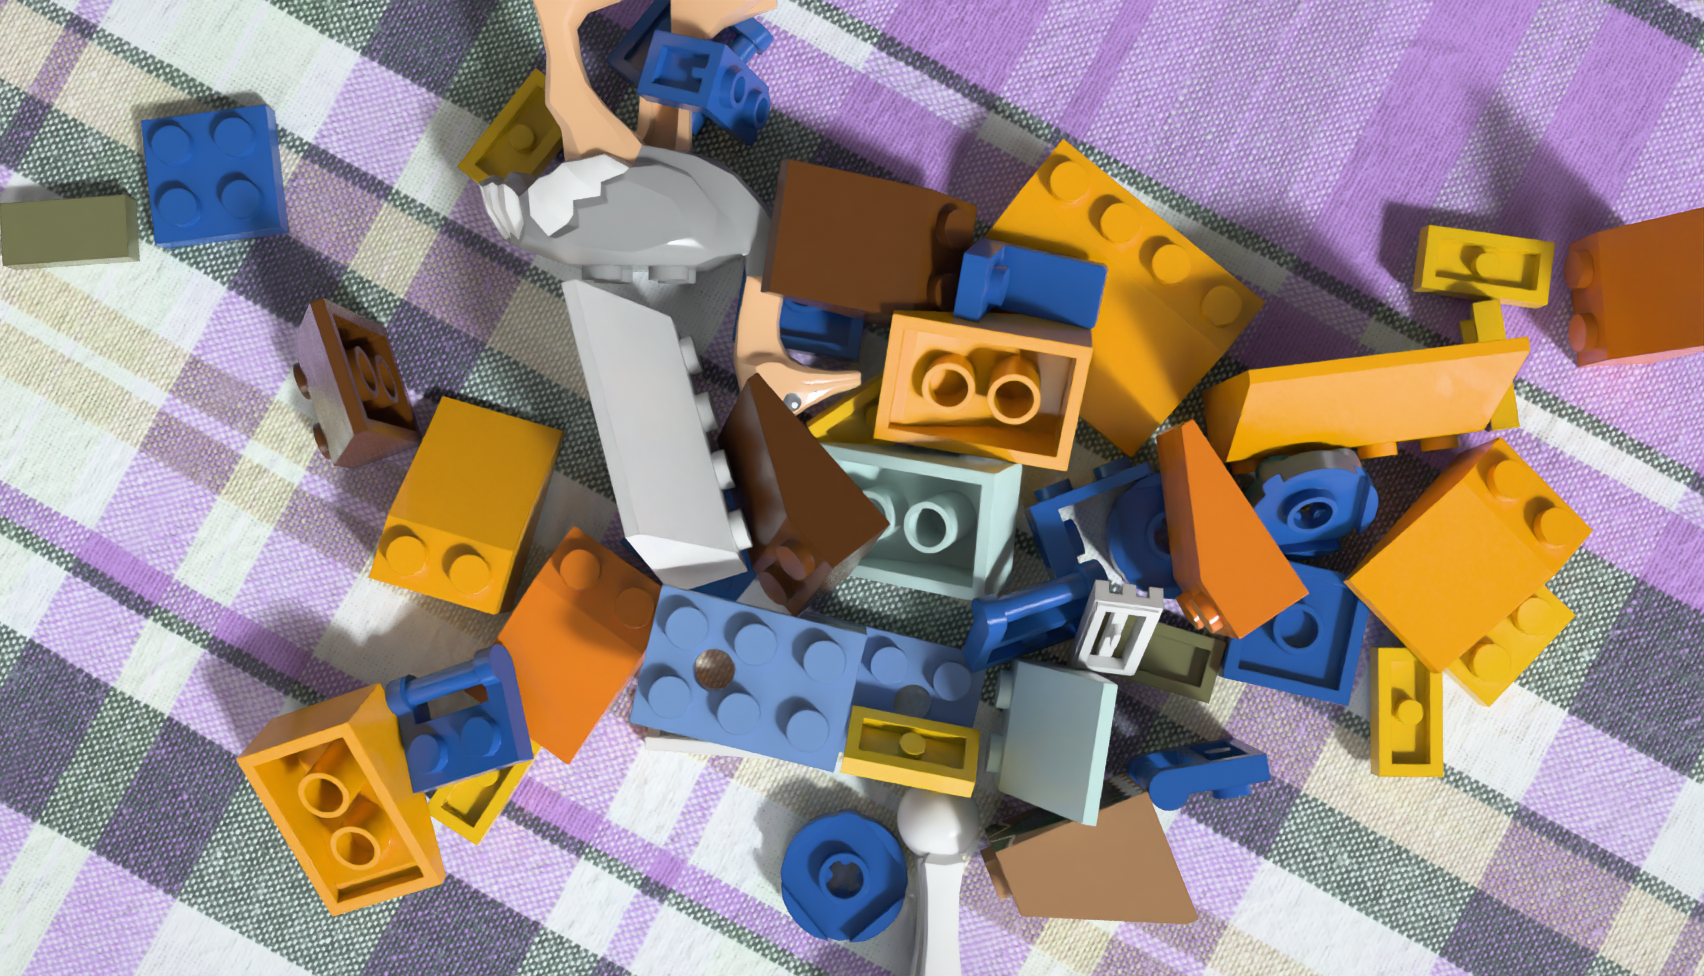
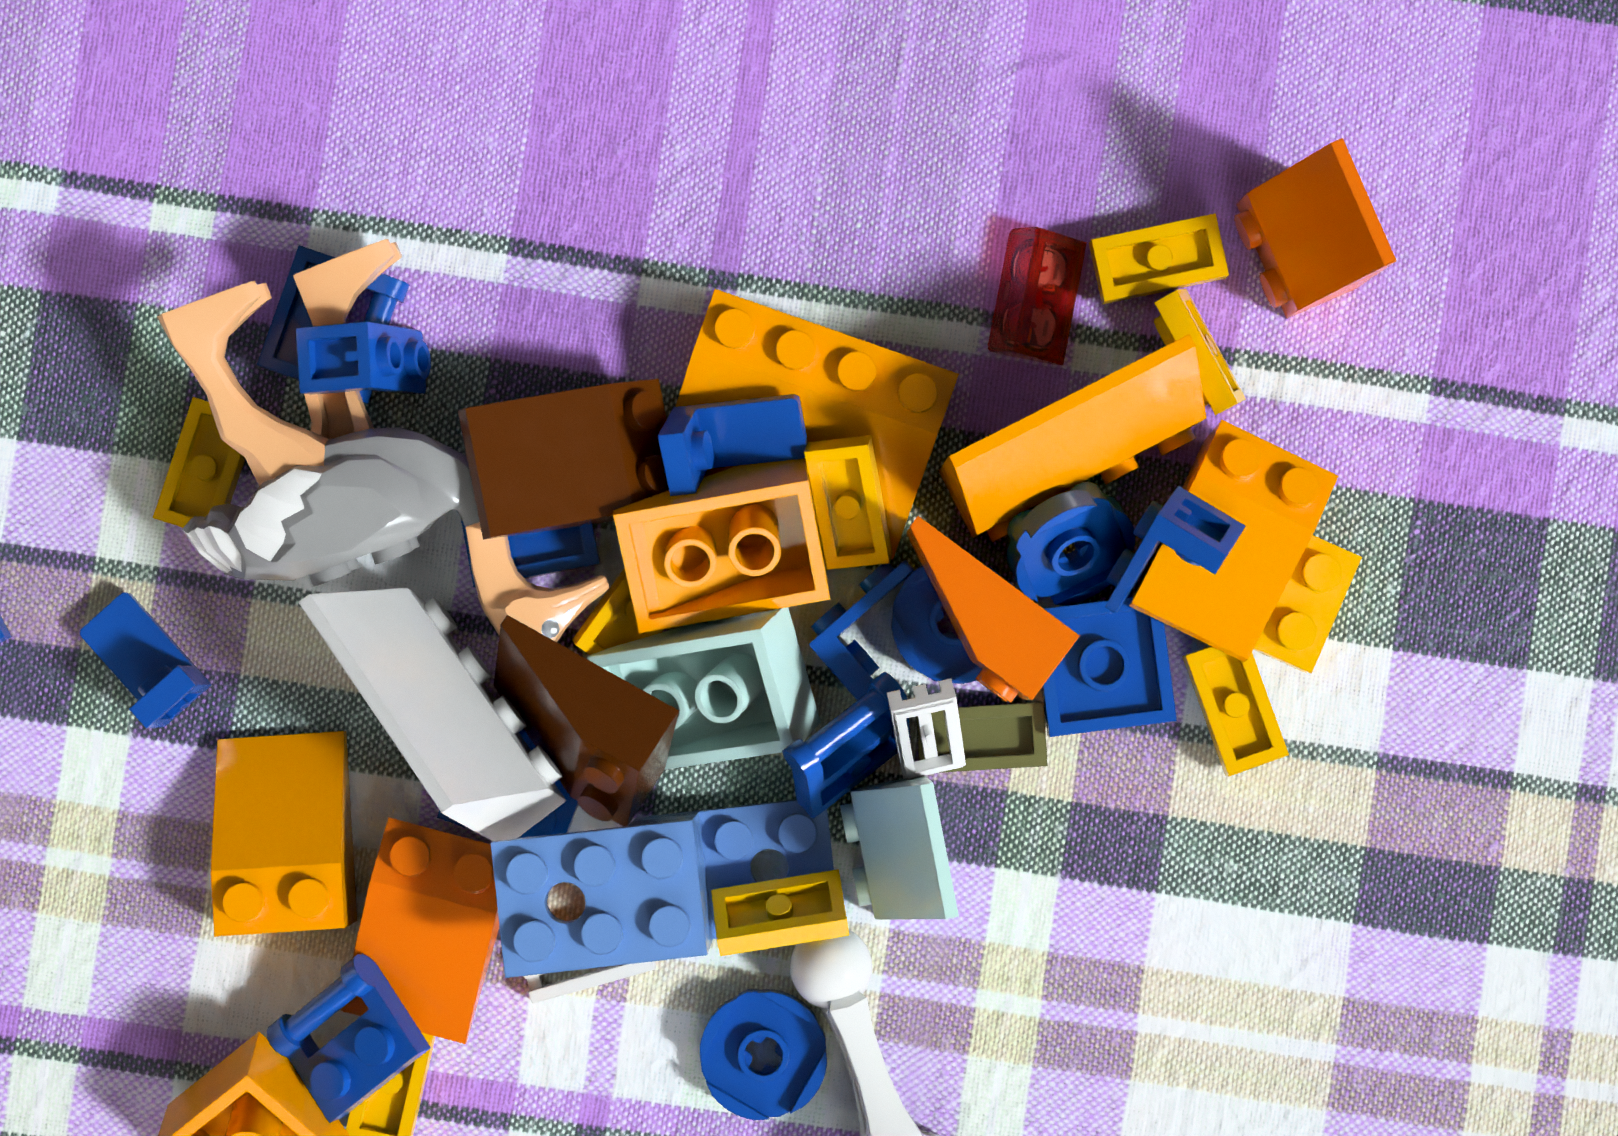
camera: 25 degrees left, 0 degrees up
(353, 386) = (133, 767): reddish brown slope -> none
(401, 299) = (144, 661): none -> blue bracket
(1089, 871) = (983, 957): medium nougat slope -> none
(1117, 386) = (848, 502): none -> yellow plate
(1218, 766) = (1068, 825): blue plate -> none
(1353, 260) = (1036, 295): none -> clear red slope
(1443, 531) = (1185, 524): none -> blue bracket

